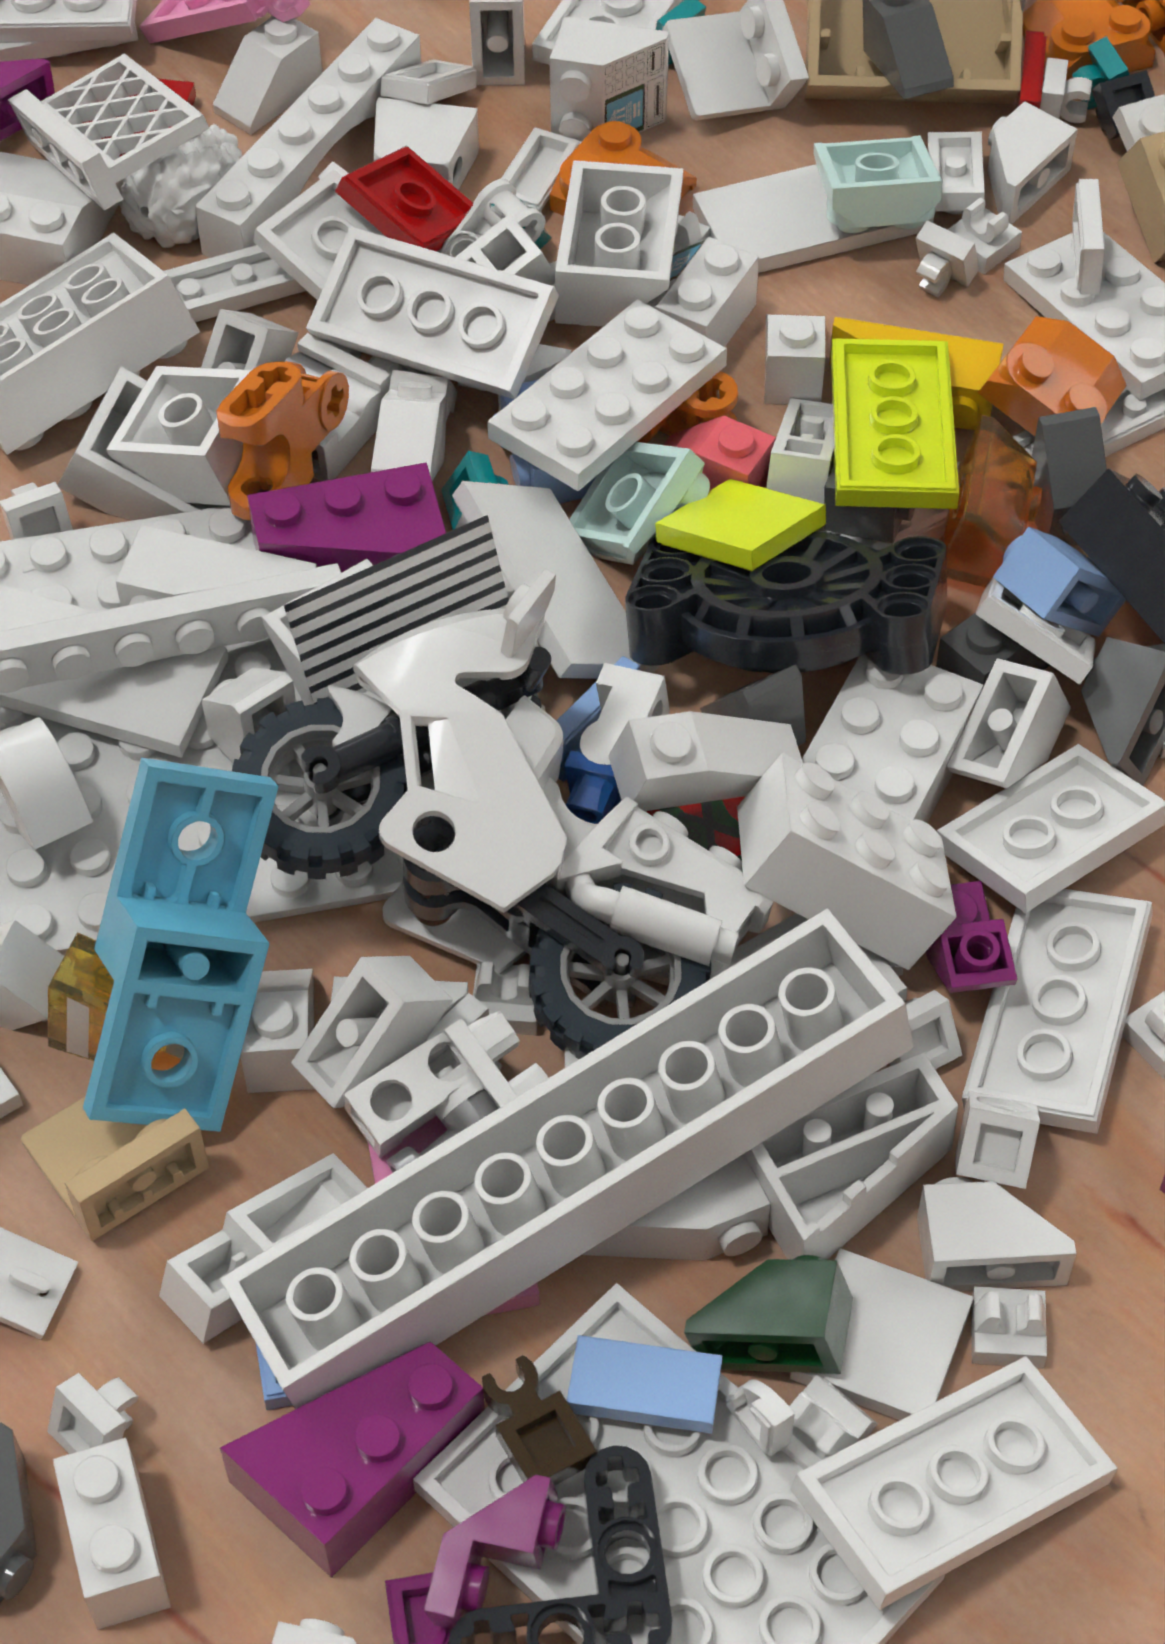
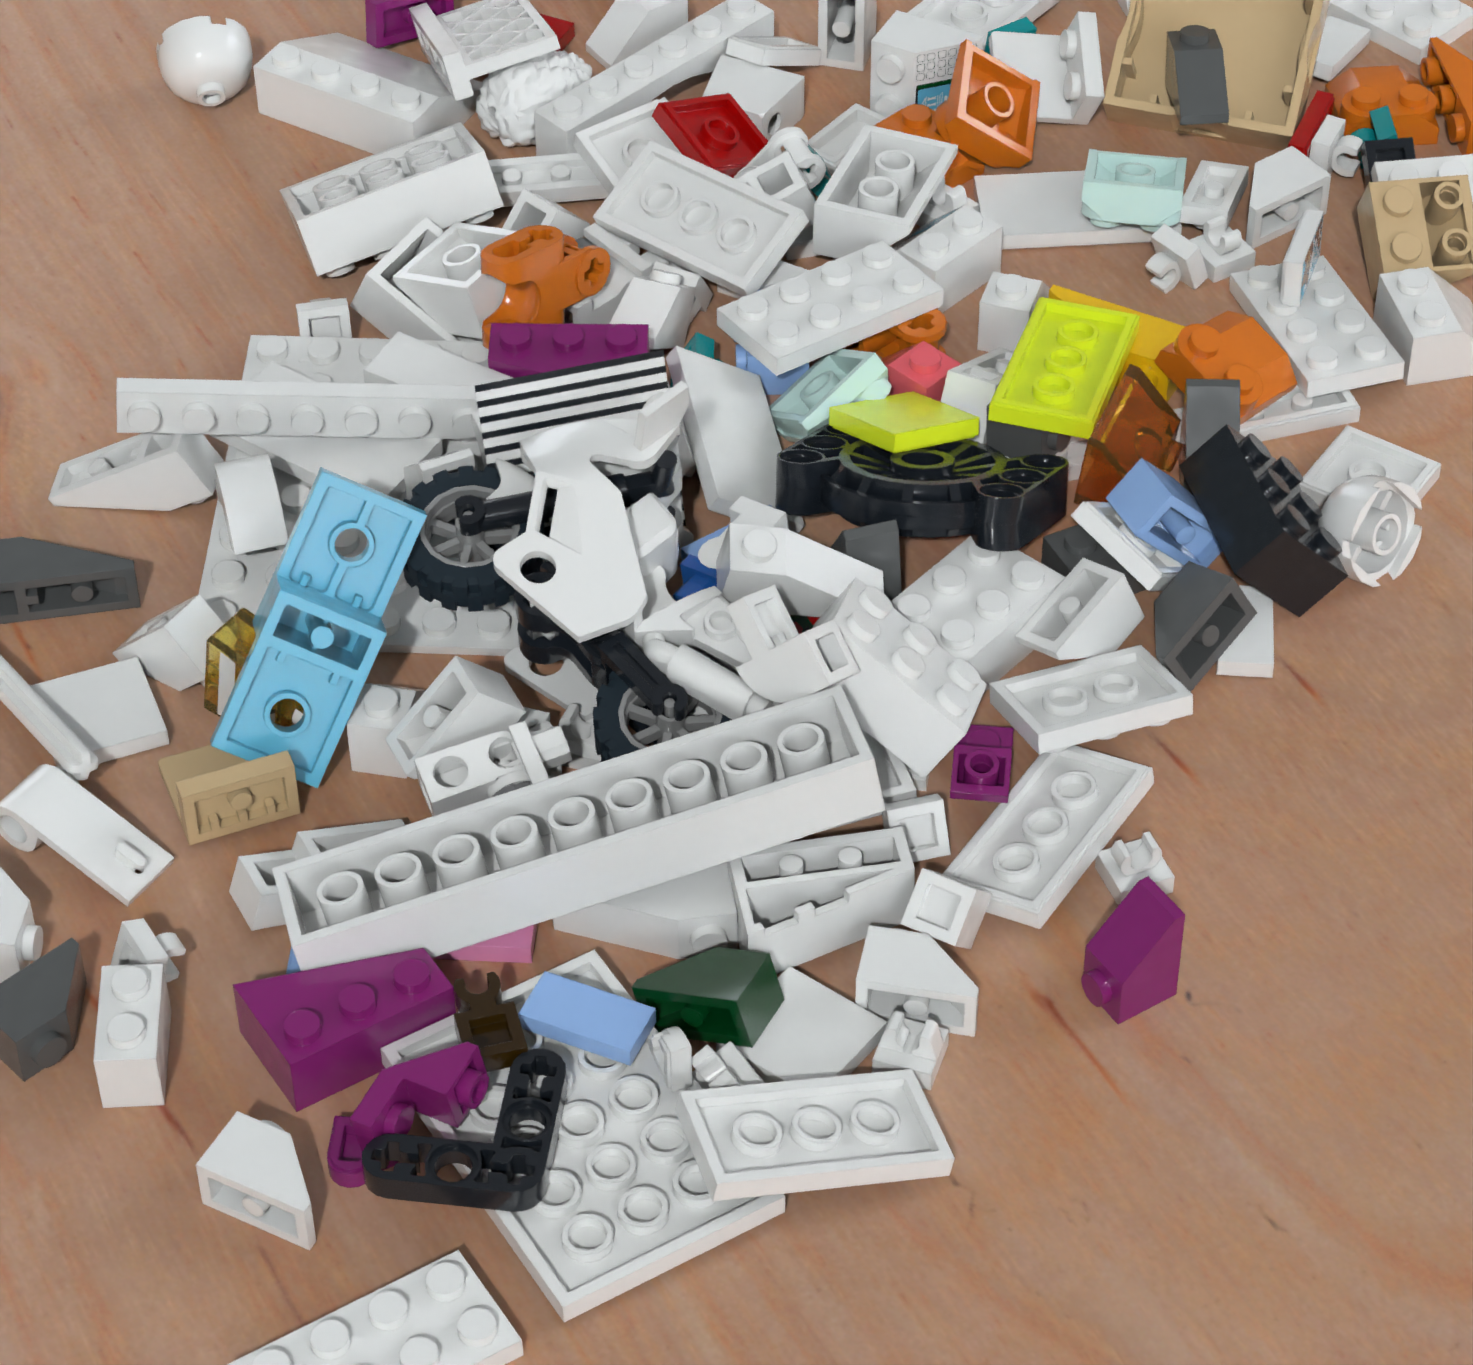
camera: 15 degrees right, 10 degrees down
(692, 115) = (989, 109): none -> orange slope
(751, 889) = (782, 660): none -> white brick

